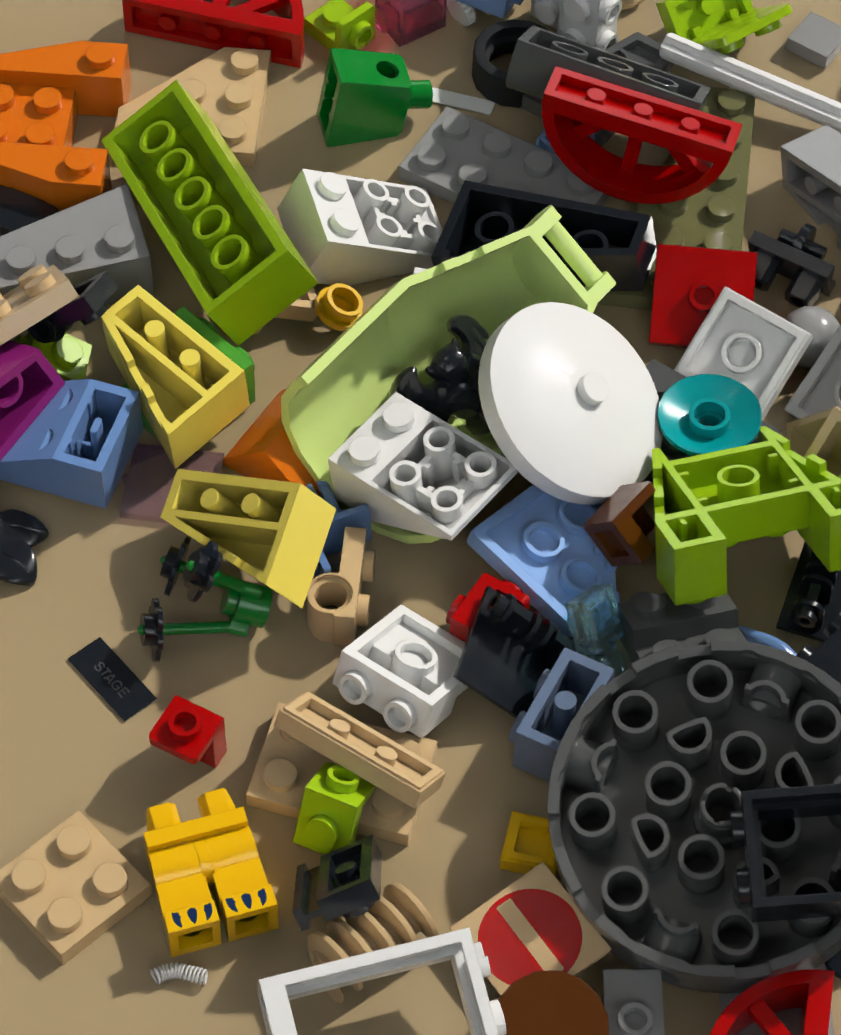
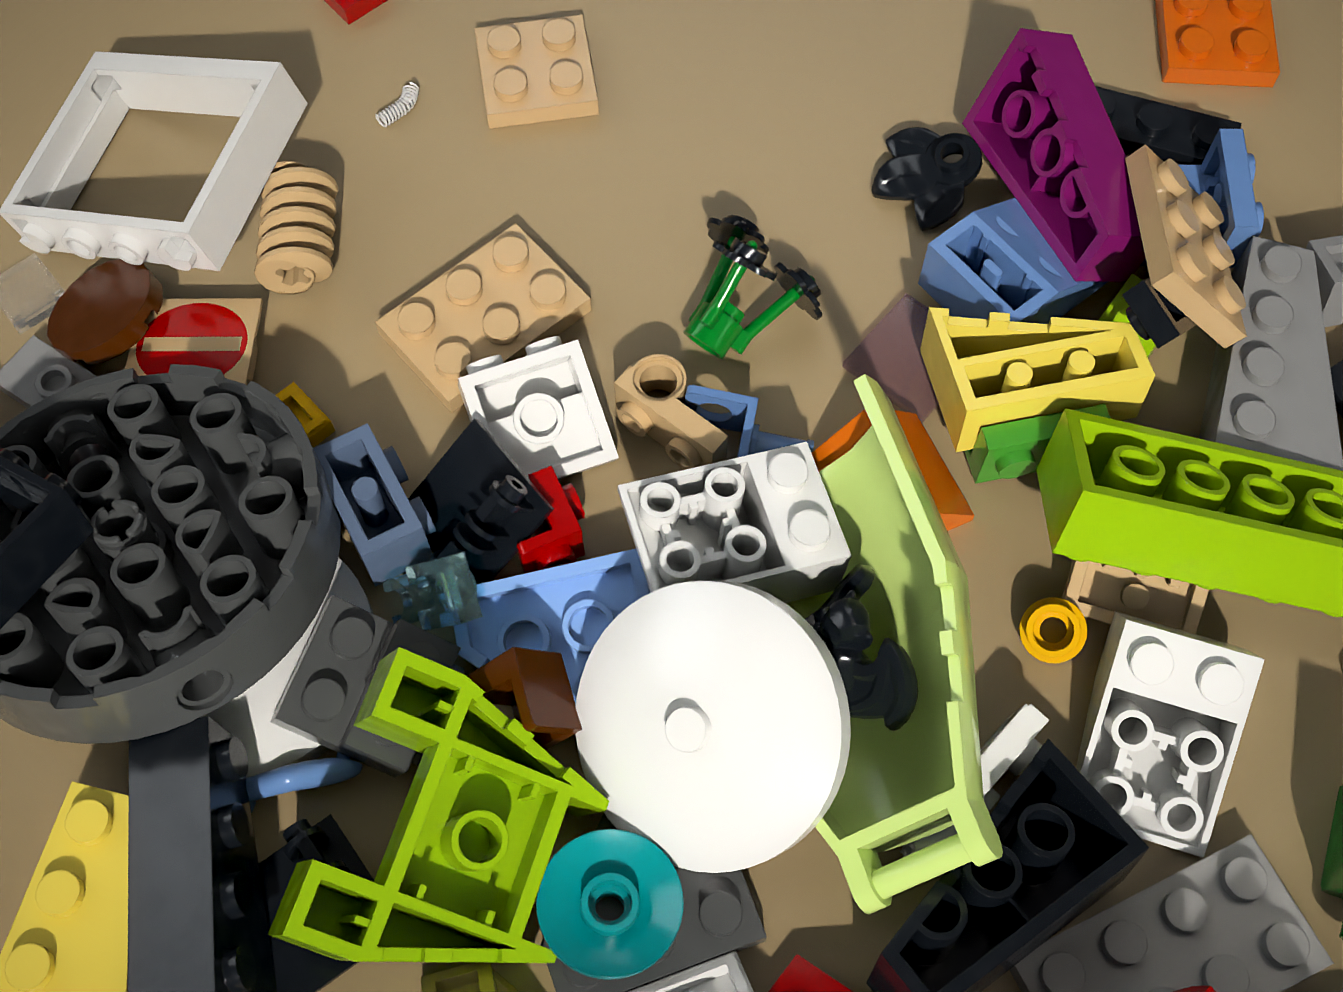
camera: 125 degrees right, 10 degrees up
(112, 679) = (719, 201): black sticker -> none
(190, 733) = (598, 196): red bracket -> none
(201, 854) = (459, 153): yellow hips -> none
(259, 525) = (772, 342): light yellow wedge -> none
(331, 809) = (441, 269): lime bracket -> none
(341, 885) = (353, 215): black plate -> none
(360, 749) = (468, 303): tan tile -> none

